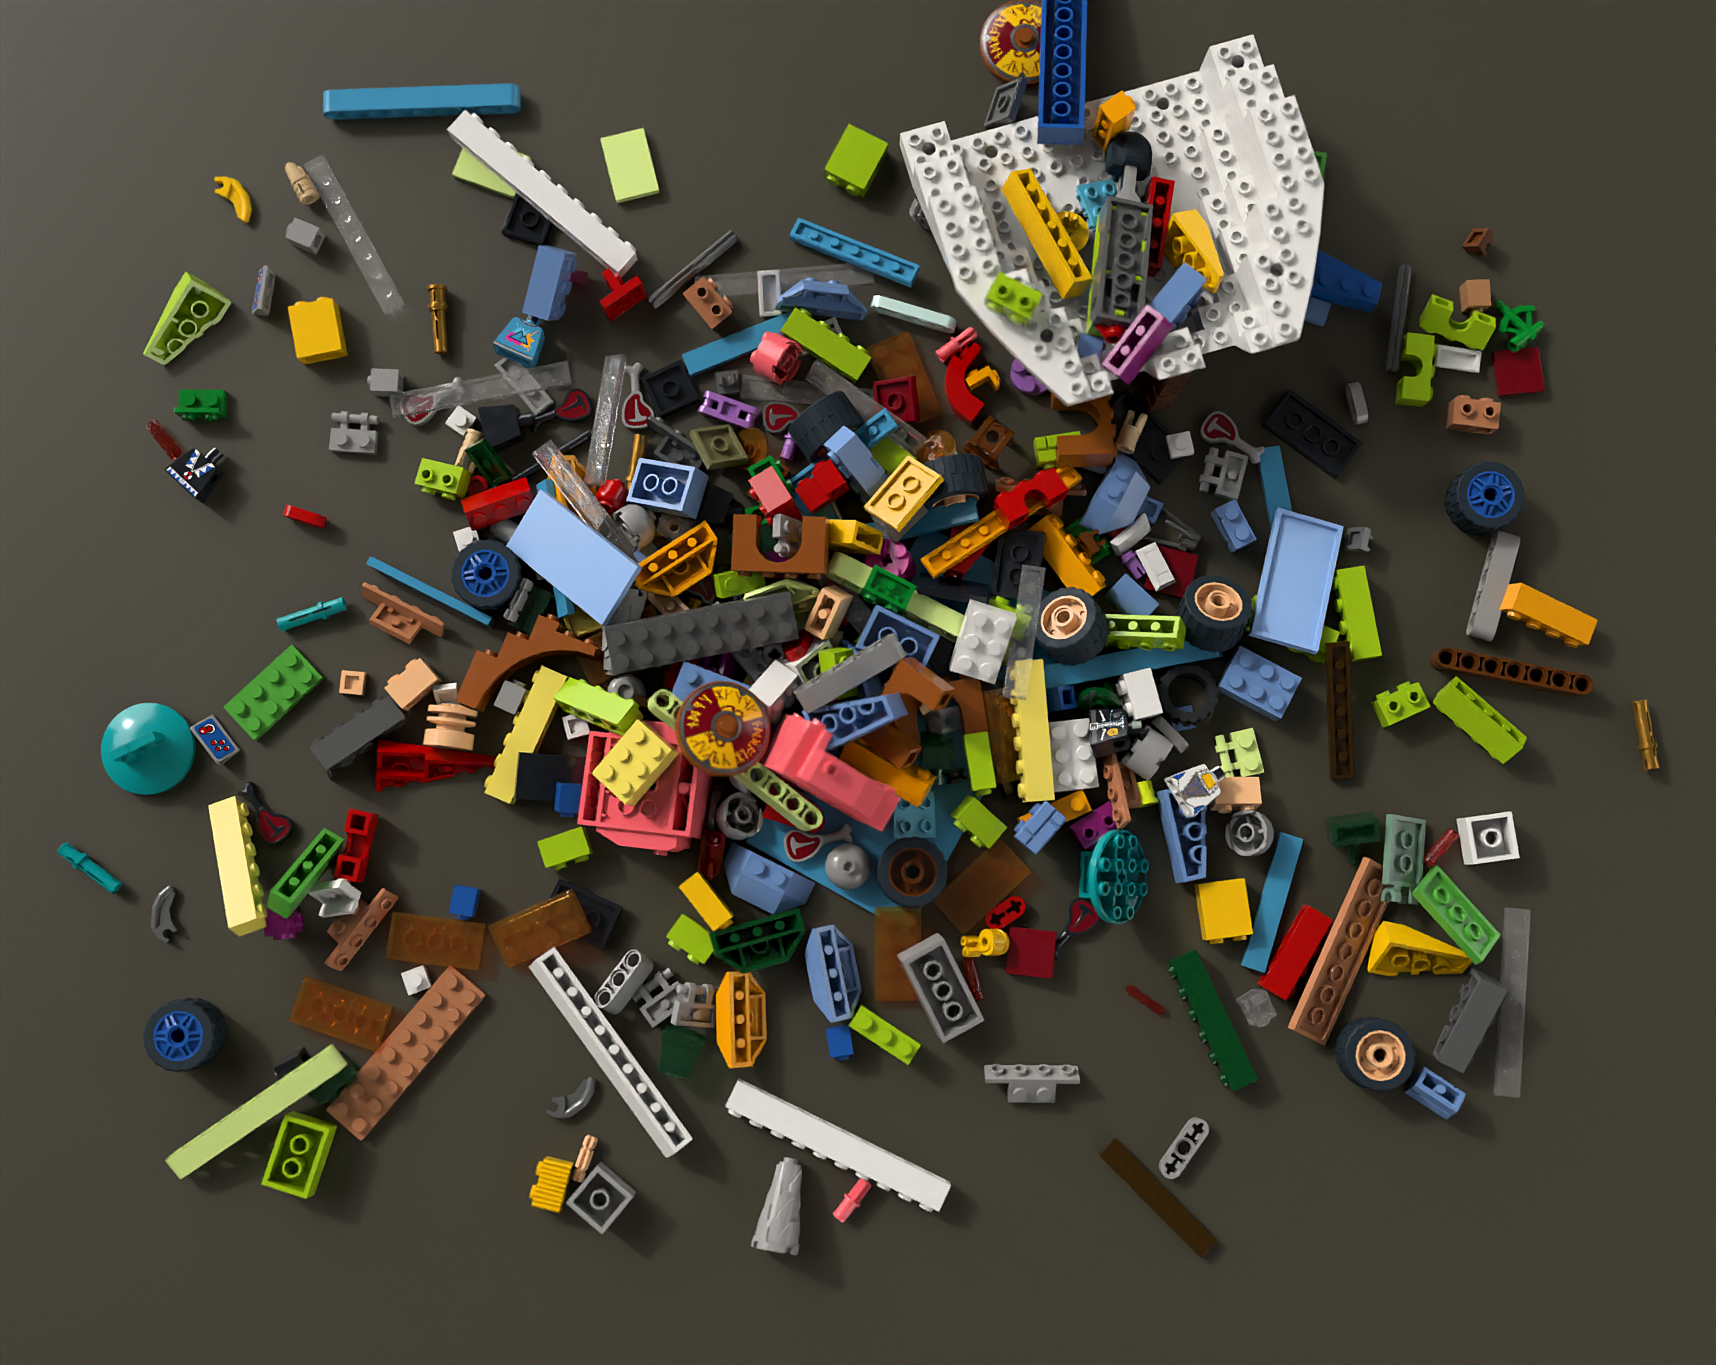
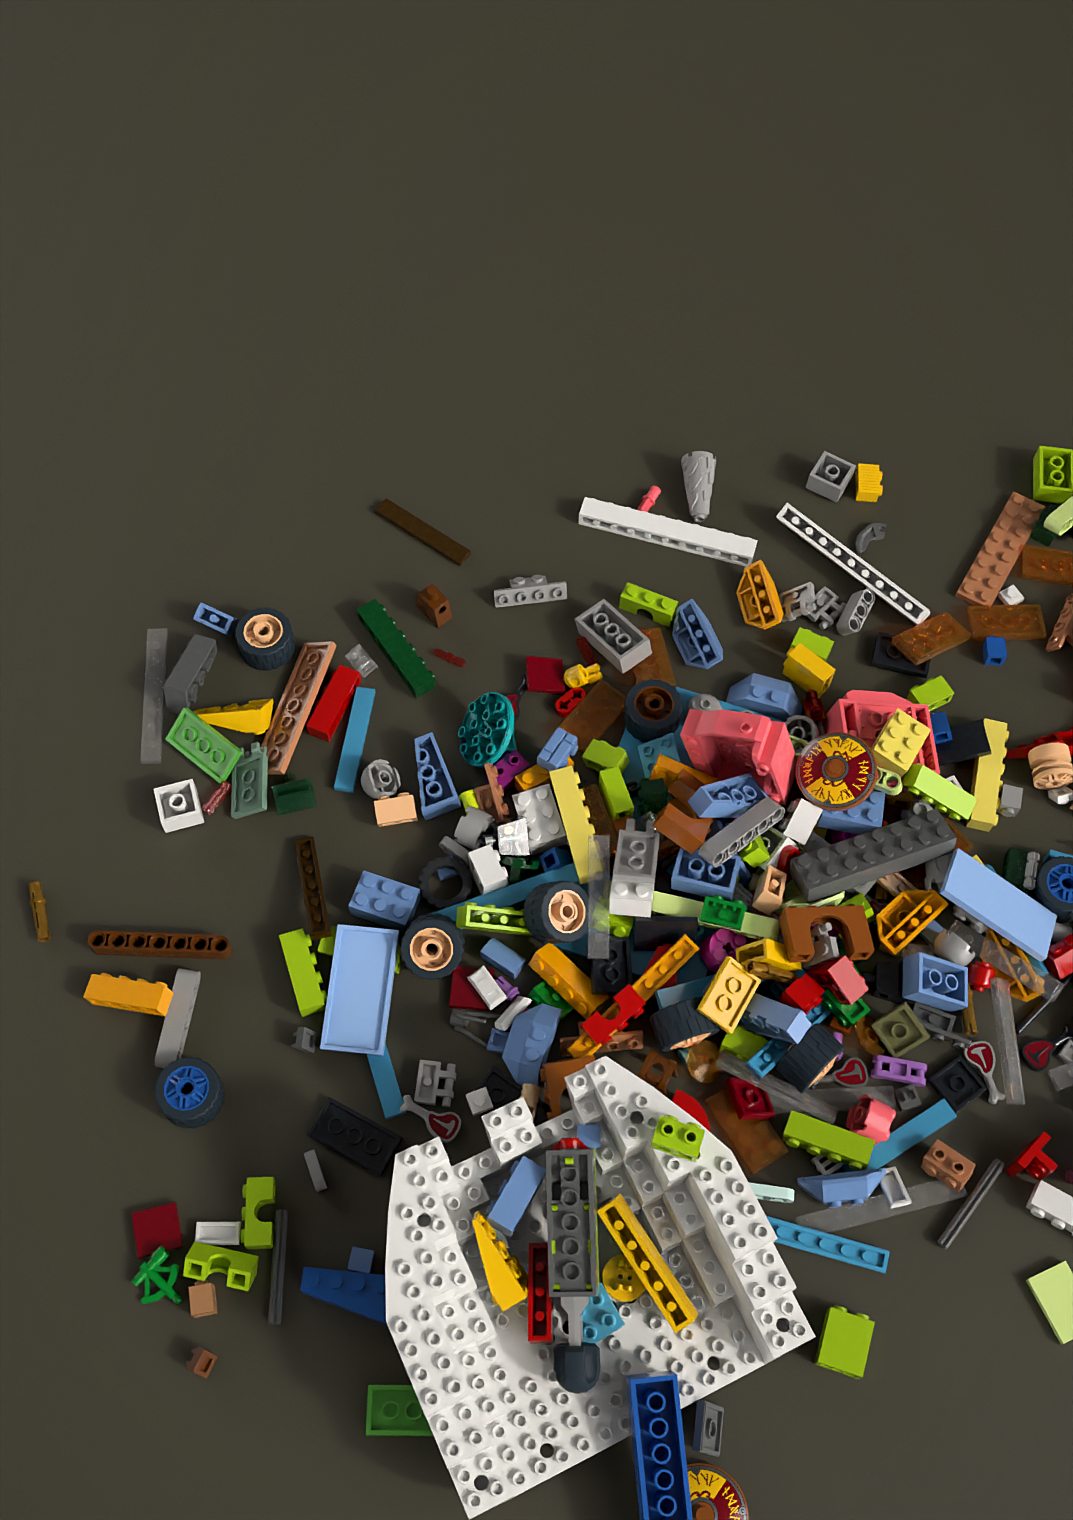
camera: 170 degrees right, 20 degrees down
(491, 669) = (997, 845): dark orange arch -> none
(584, 1158) = (849, 502): light nougat axle -> none
(679, 1051) = (800, 569): clear green piece -> none
(759, 942) = (761, 648): dark green wedge -> none
(839, 1042) = (680, 592): blue brick -> none
(855, 513) = (766, 971): none -> pearl gold pin
(975, 668) = (636, 854): none -> light grey tile
(1088, 544) = (551, 990): reddish brown tile -> none
(1113, 119) = (599, 1396): light orange brick -> none
(1137, 344) = (548, 1128): magenta brick -> none
(1157, 1072) = (434, 605): none -> reddish brown torso
(1193, 1147) = (406, 557): light grey beam -> none
(1195, 787) = (432, 800): torso -> none
(1223, 910) = (394, 725): yellow brick -> none
(1233, 526) = (421, 1033): medium blue brick -> none
(1245, 752) = (388, 848): yellowish green plate -> none
(1400, 704) = (258, 903): lime brick -> none
(1473, 415) = (201, 1176): nougat brick -> none
(1479, 720) = (188, 898): lime brick -> none

